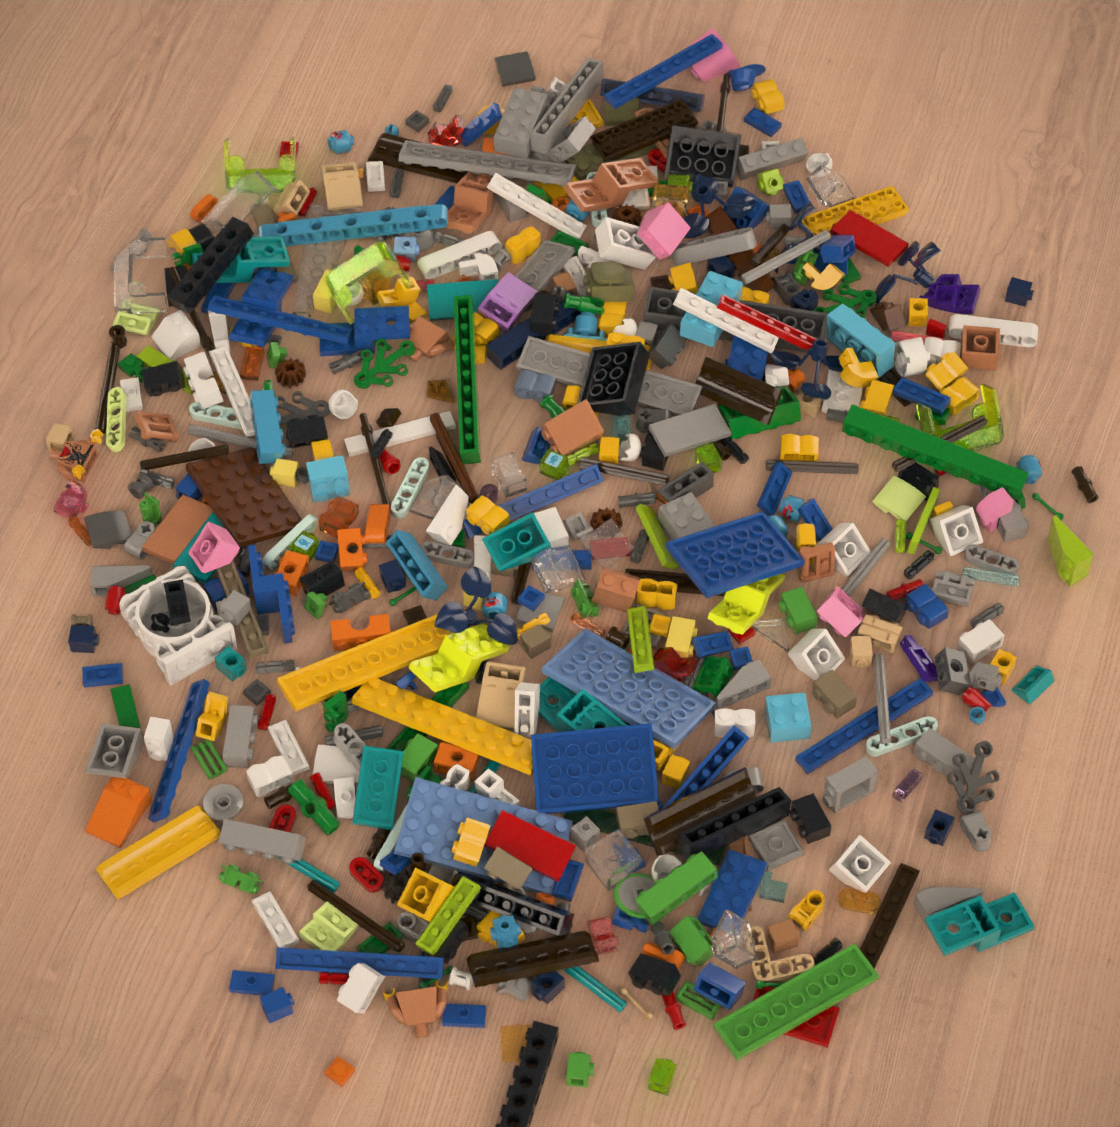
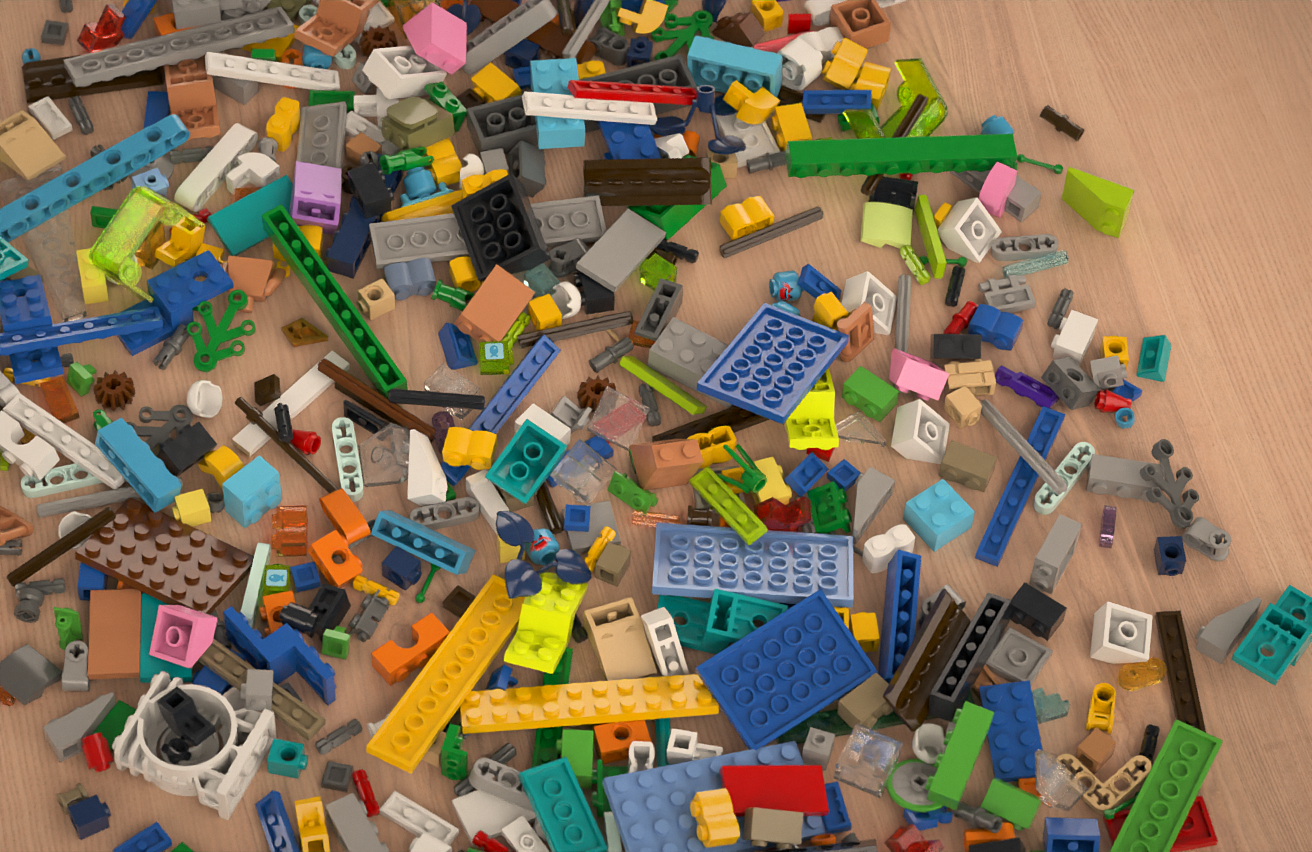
camera: 35 degrees left, 0 degrees up
(296, 574) = (299, 618): none -> black brick
(490, 473) = (437, 399): none -> black axle
(502, 390) = (376, 299): none -> tan brick
(641, 278) = (445, 99): none -> green bracket
(667, 628) = (752, 477): none -> green plant
(774, 489) = (751, 274): blue plate -> none

